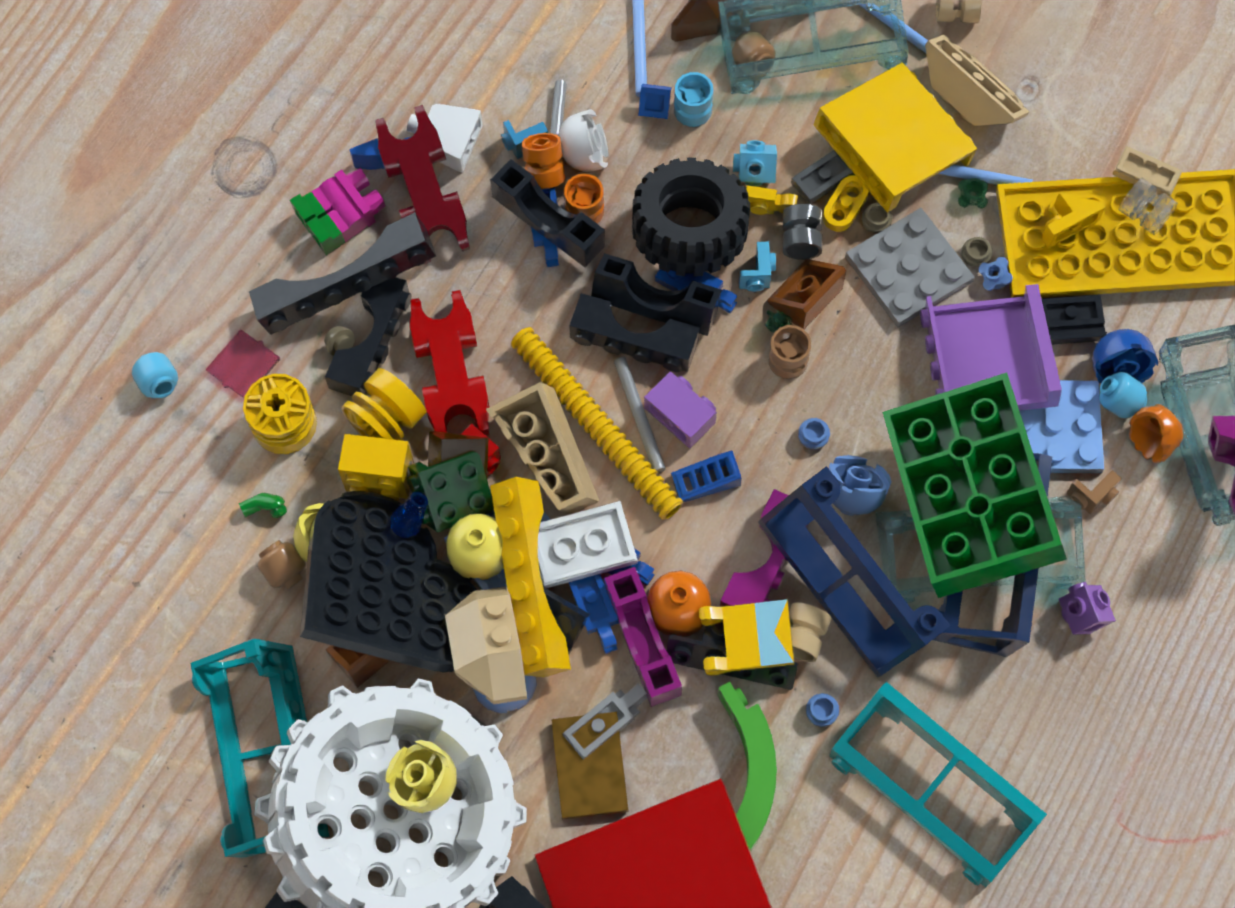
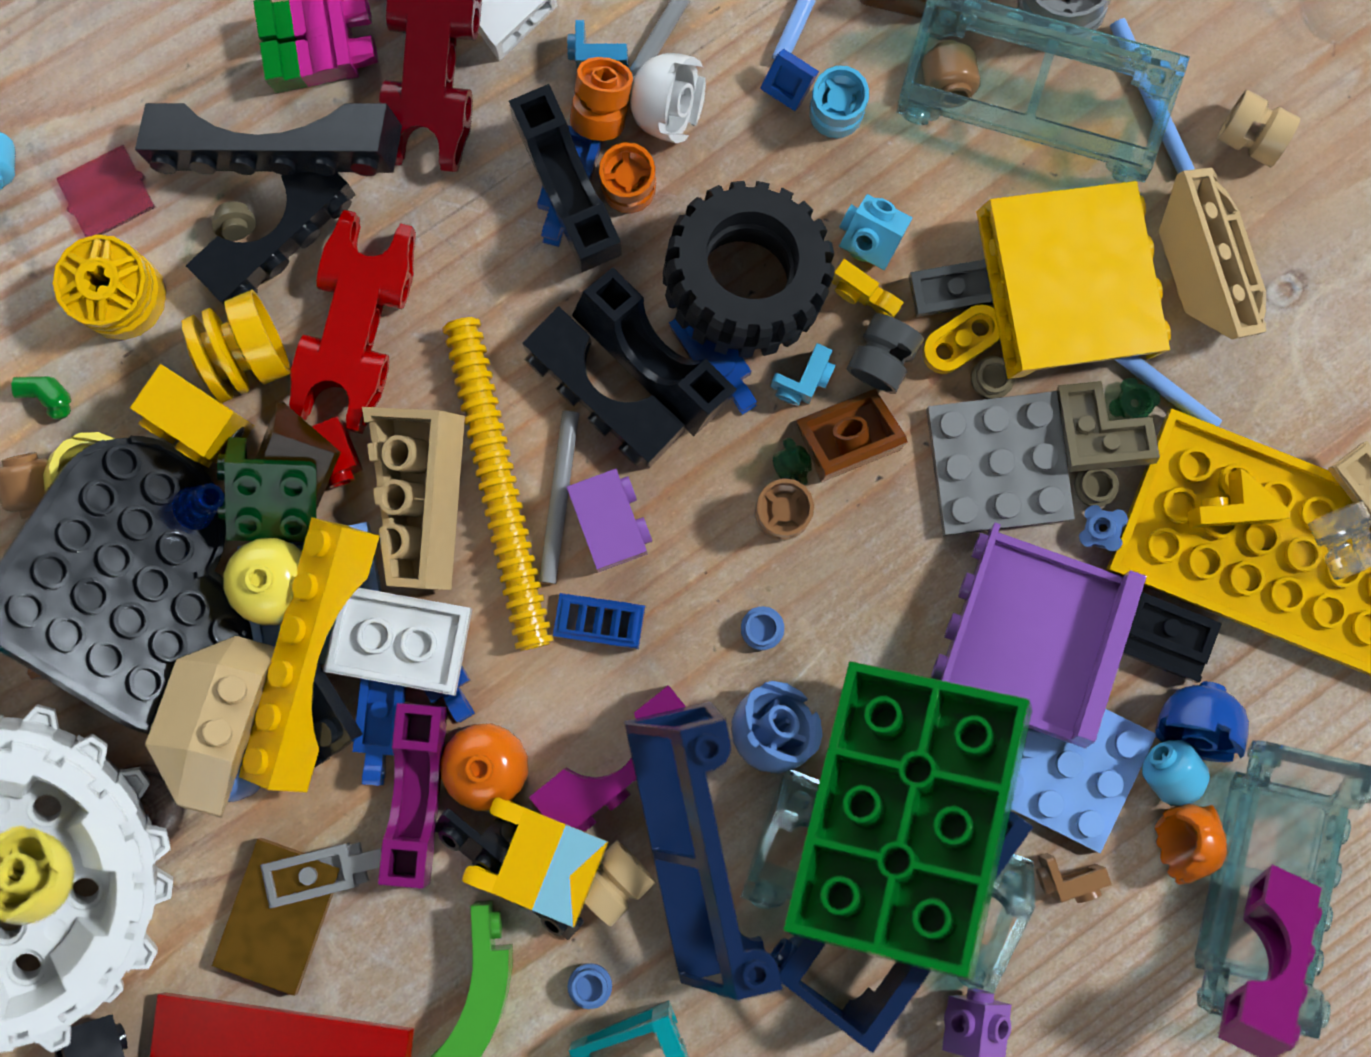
camera: 25 degrees right, 15 degrees up
(963, 223) = (1095, 441): none -> dark tan plate

